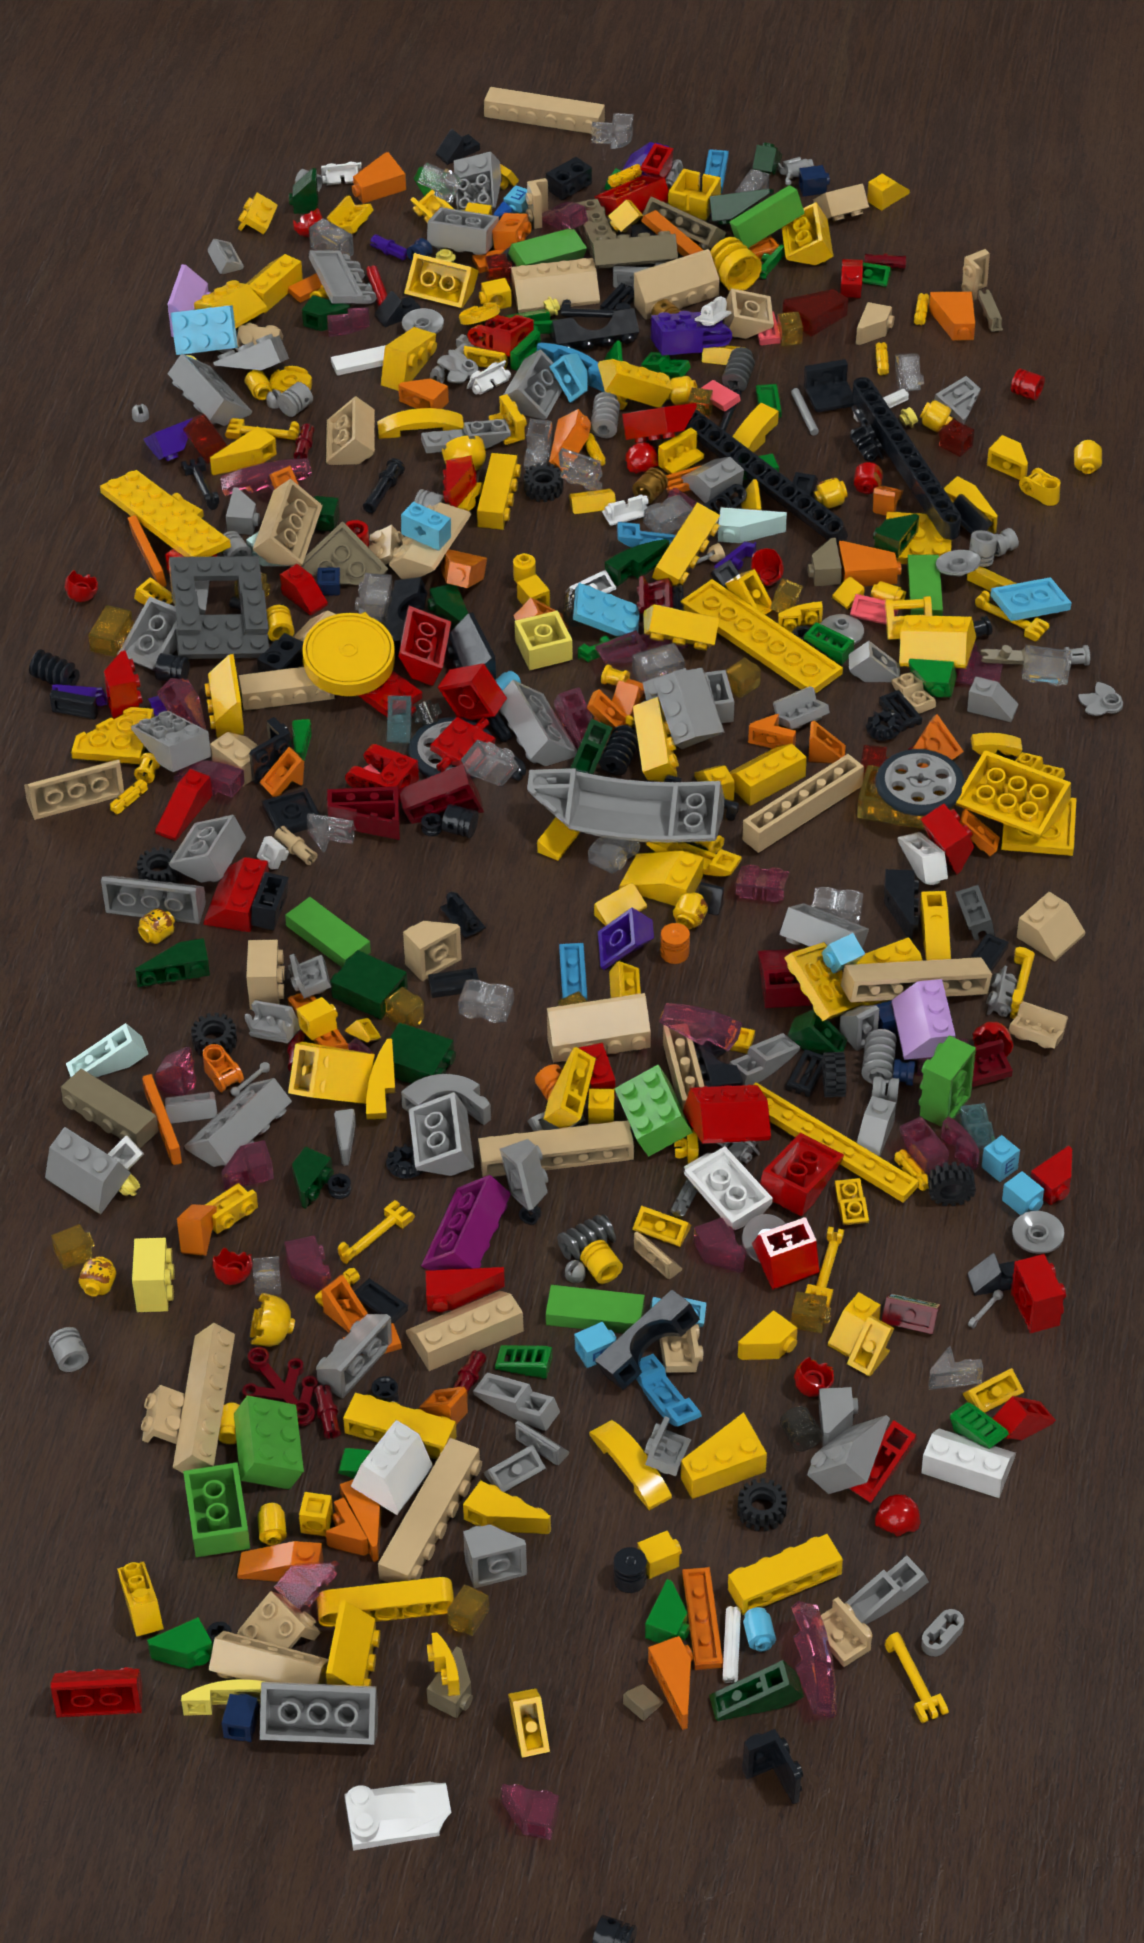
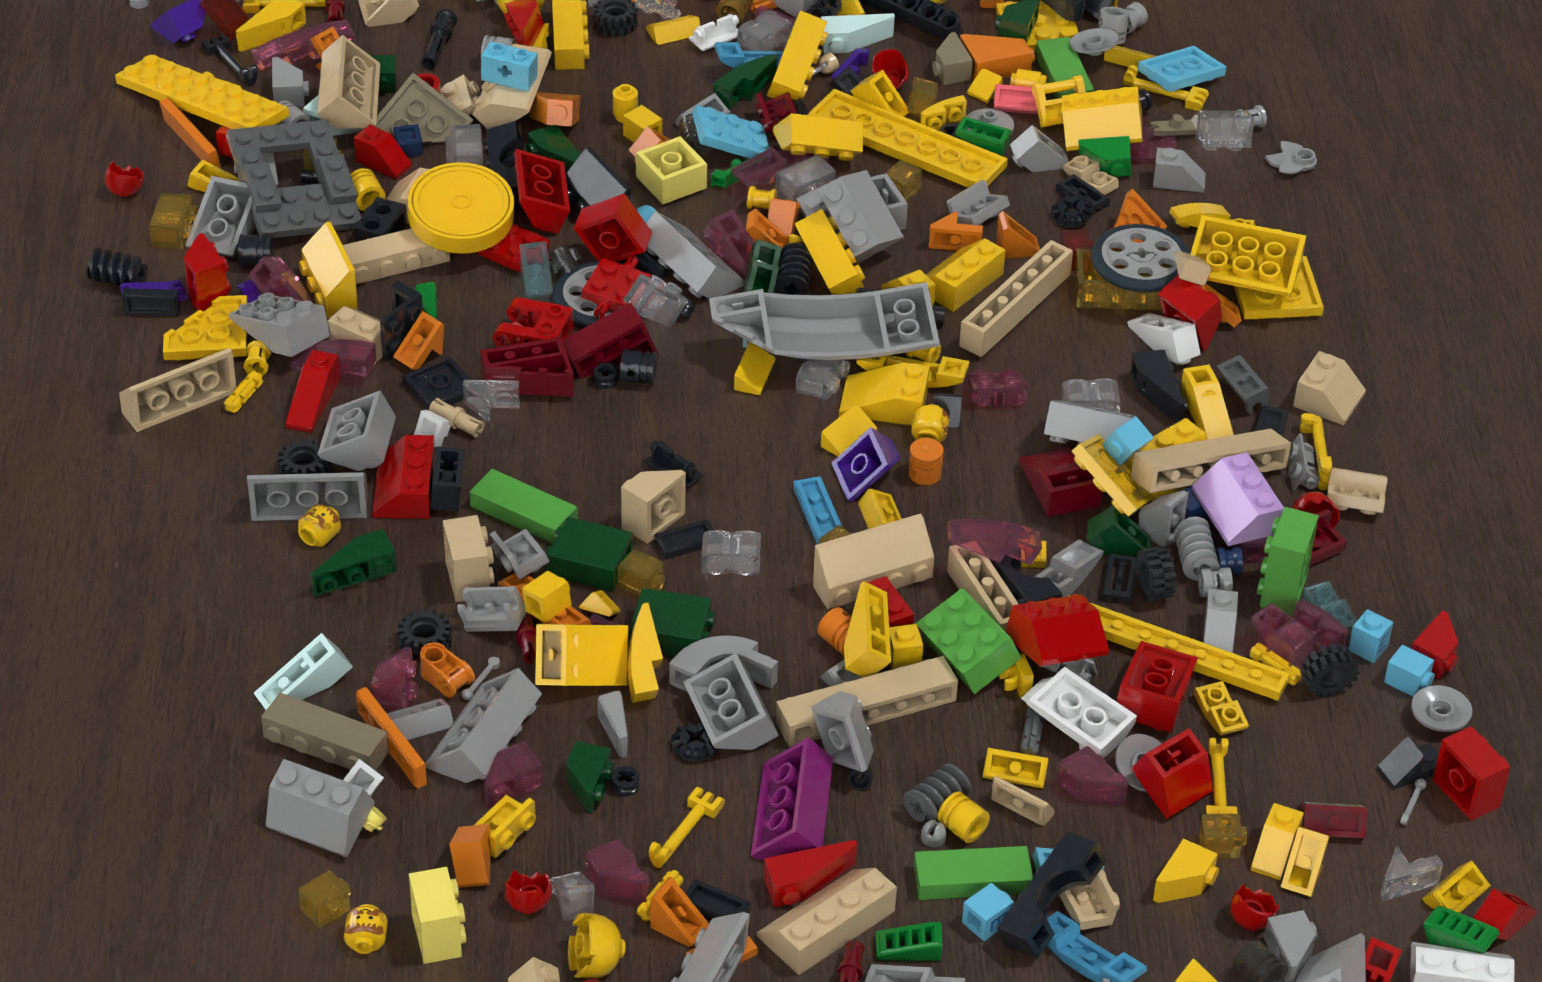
camera: 15 degrees left, 5 degrees down
(955, 799) = (1192, 268): none -> tan slope

